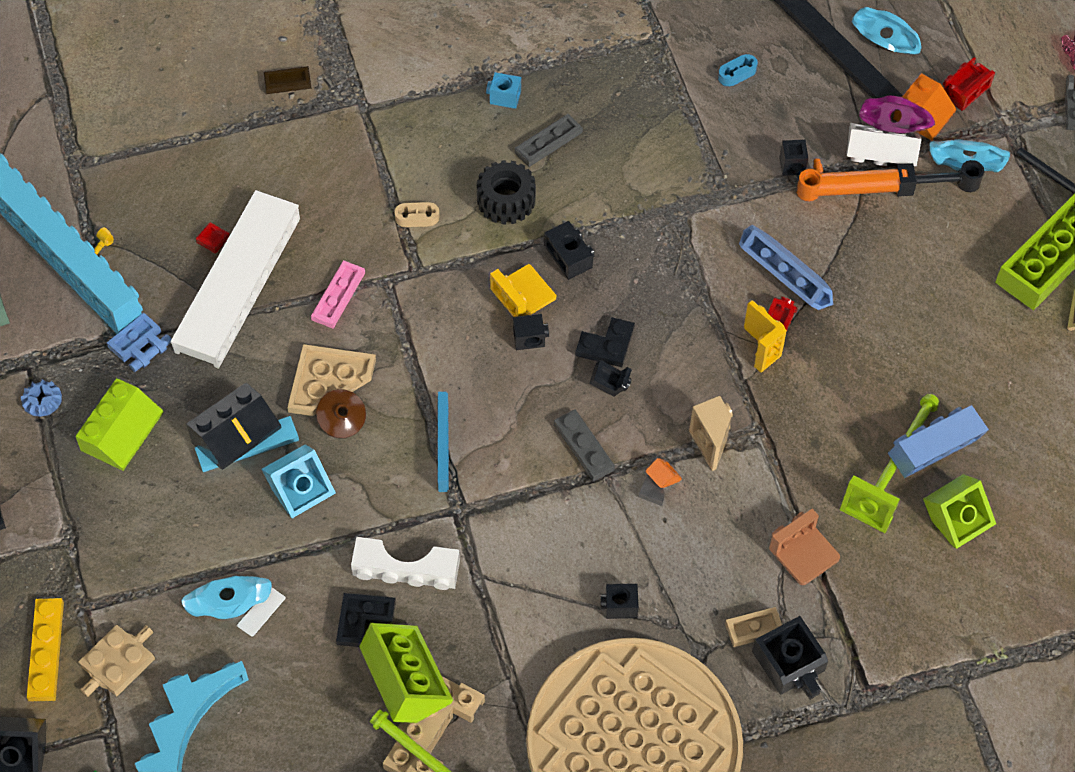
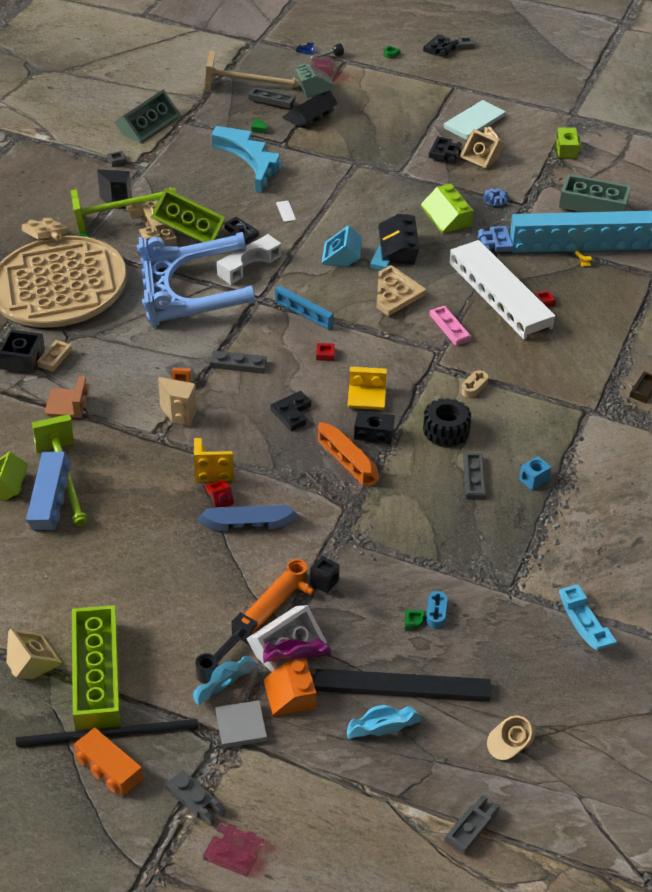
camera: 130 degrees right, 15 degrees down
(45, 649) = (347, 142): yellow plate -> none
(116, 660) = (314, 157): tan plate -> none
(207, 602) = (300, 206): medium azure piece -> none
(335, 424) = (366, 283): reddish brown dish -> none
(490, 376) = (325, 351): none -> red tile
(529, 331) = (335, 377): black brick -> none
(583, 563) = (172, 258): none -> light blue arch
(610, 378) = (265, 392): black bracket -> none
(628, 593) = (131, 317): black brick -> none
(629, 230) = (348, 454): none -> orange brick
(763, 81) = (414, 619): none -> green tile
(968, 83) = (284, 734): red hinge -> none
(988, 121) = (240, 724): none -> light grey tile

